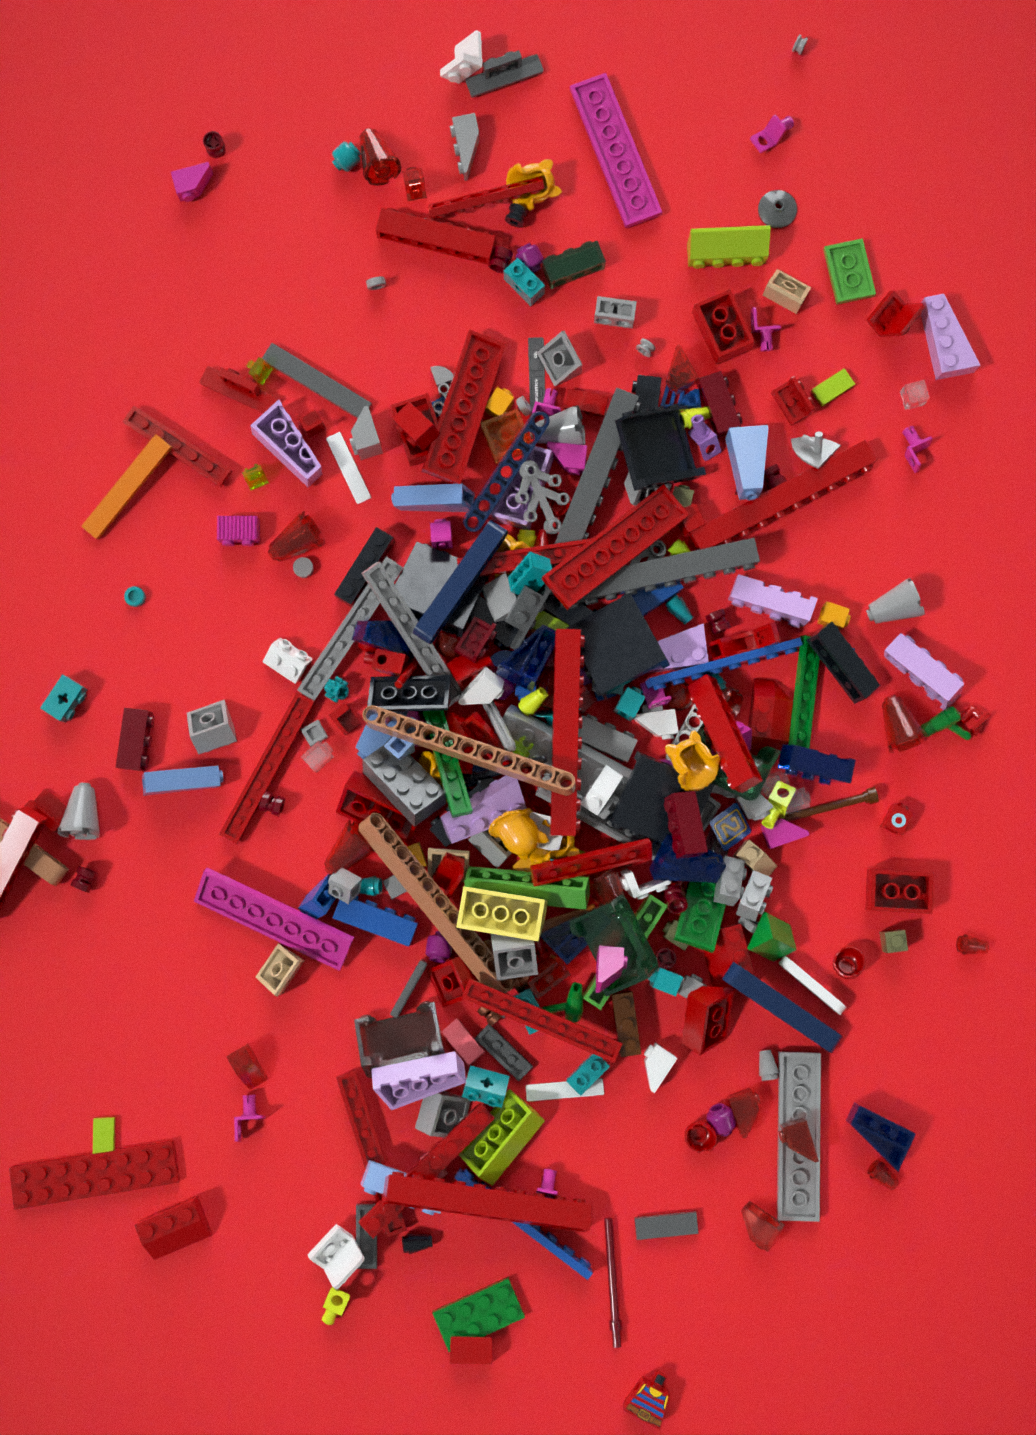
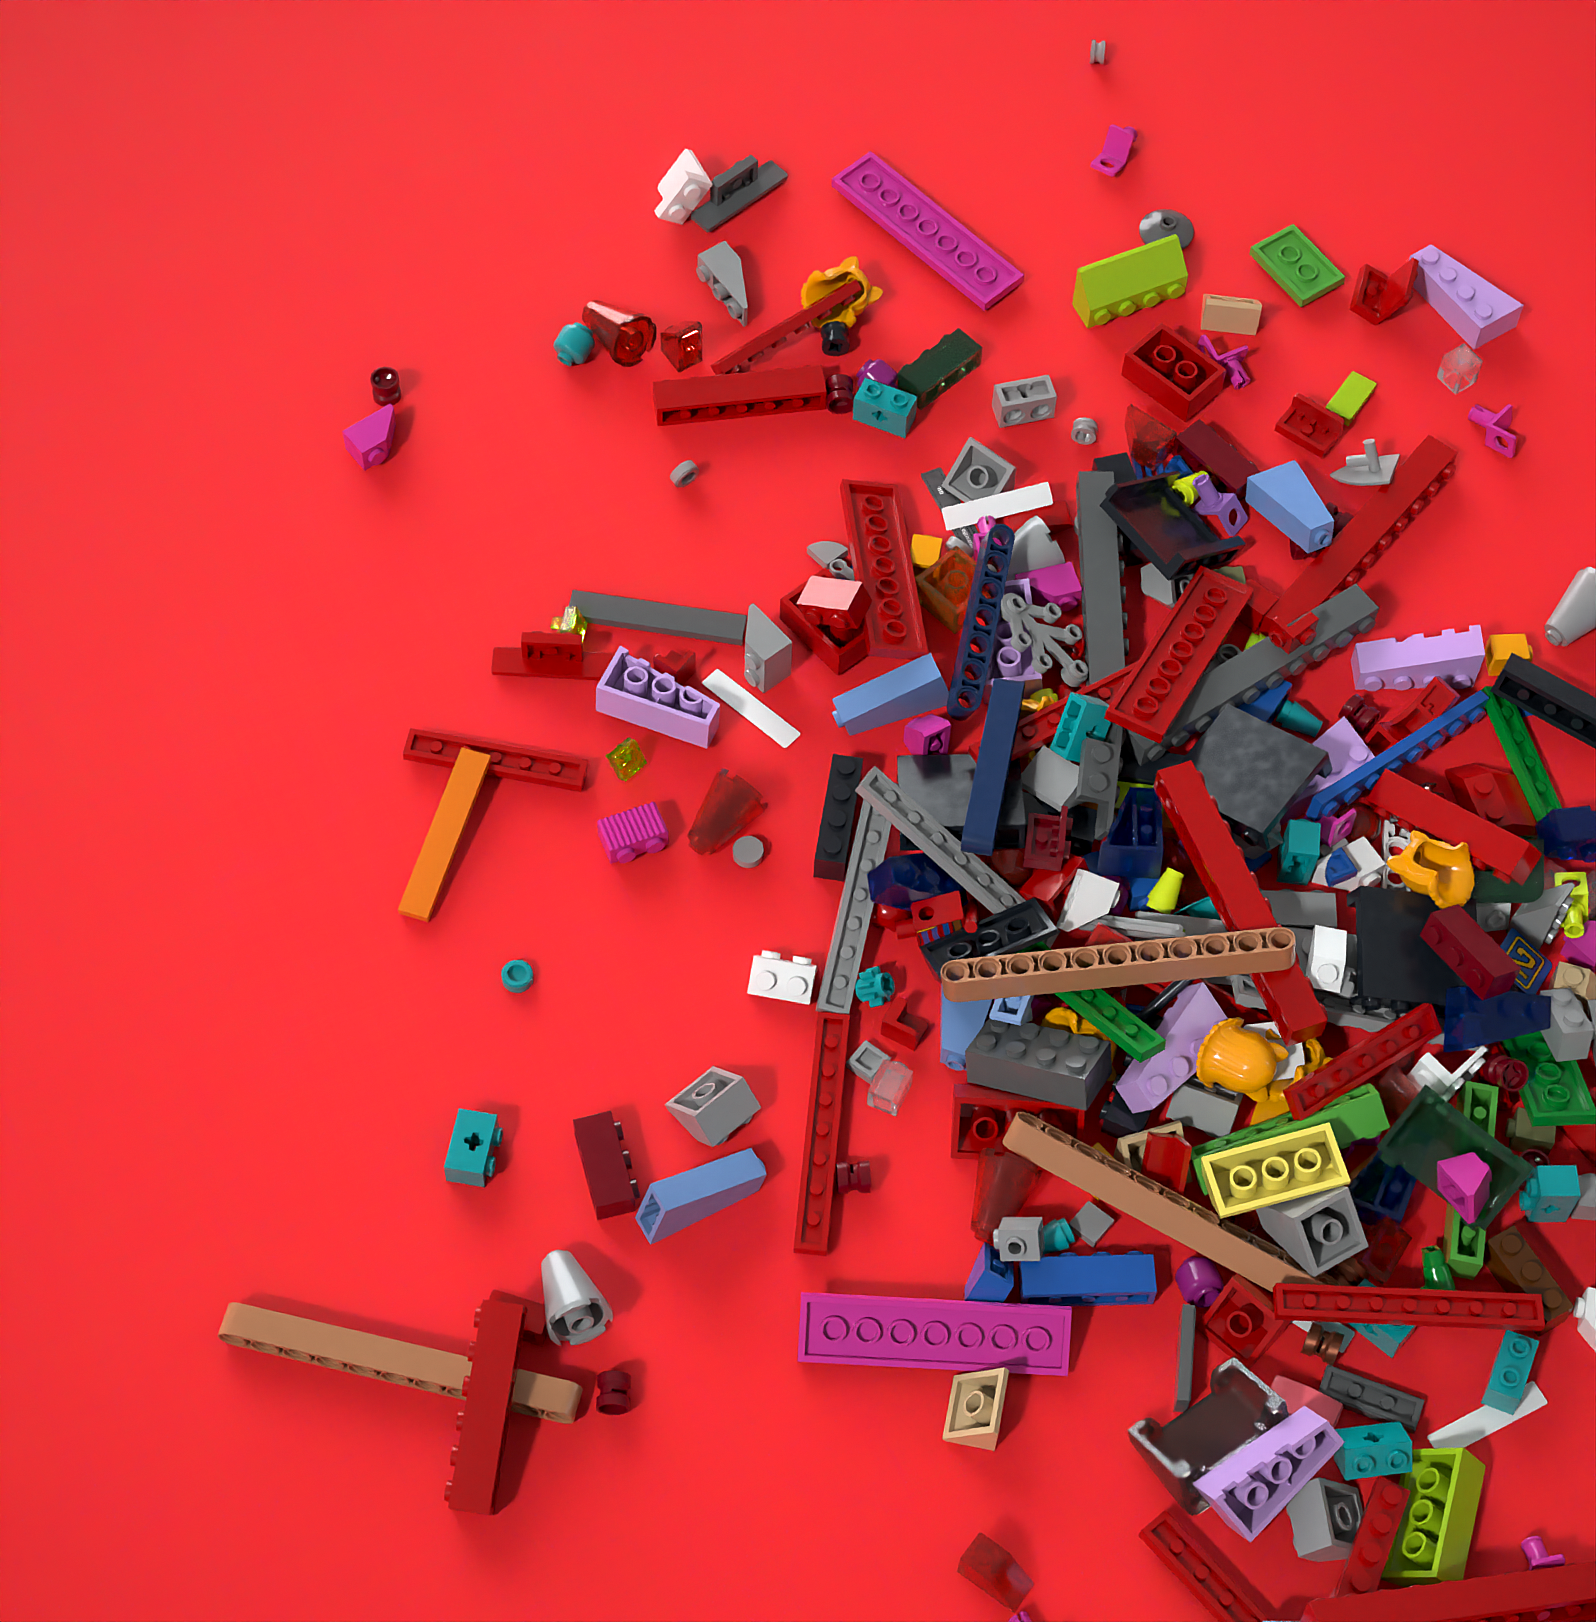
camera: 25 degrees left, 25 degrees down
(562, 384) = (997, 505): none -> white sticker
(647, 725) = (1339, 868): none -> blue tile
(698, 563) = (1292, 637): none -> red bracket

